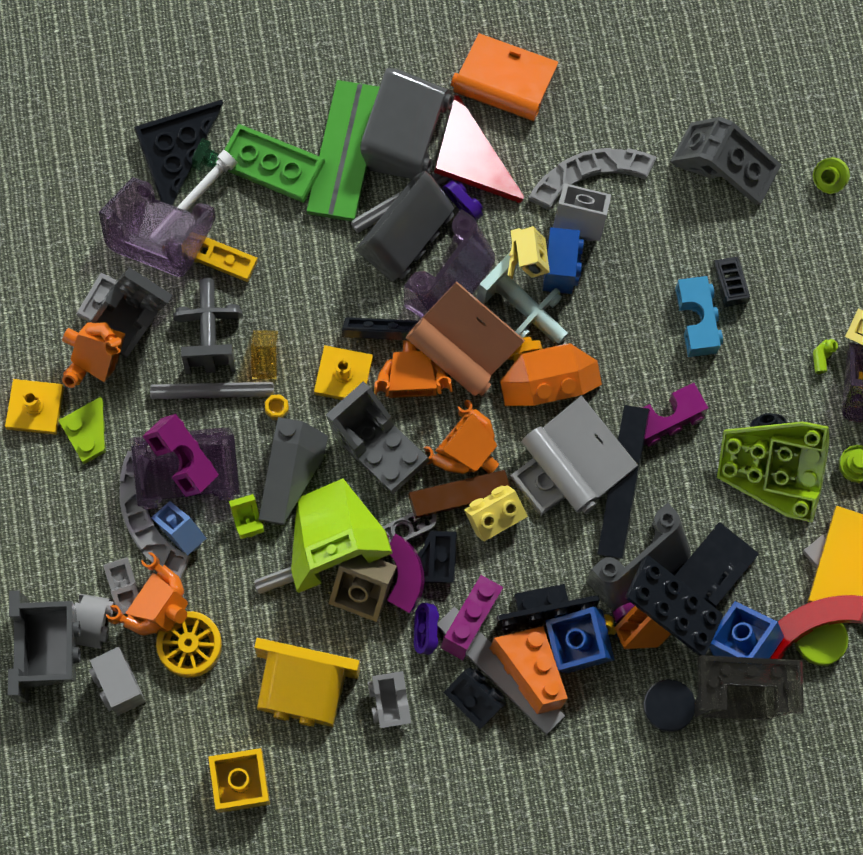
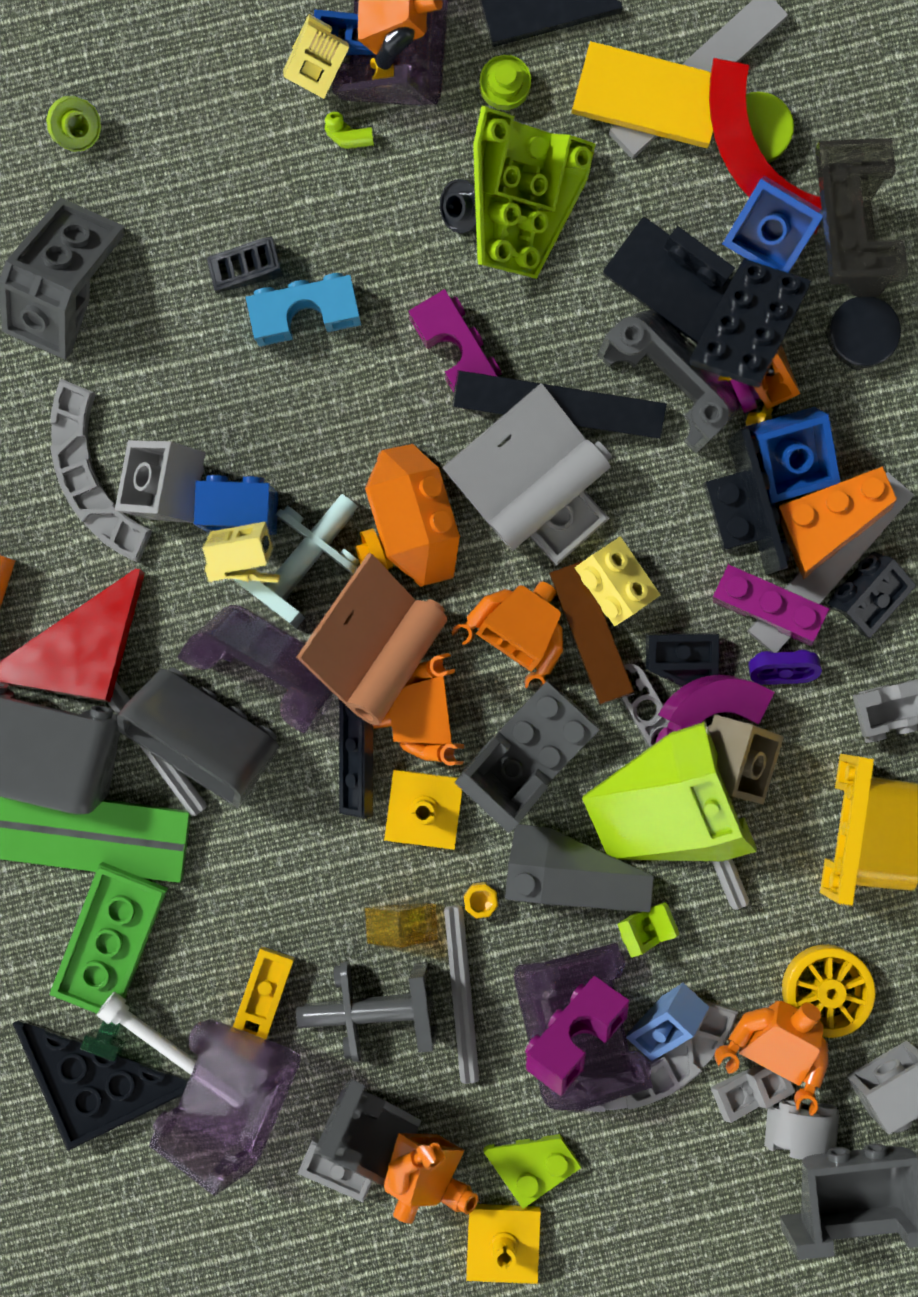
camera: 90 degrees left, 15 degrees up
(458, 195) = (159, 645): dark purple plate -> none

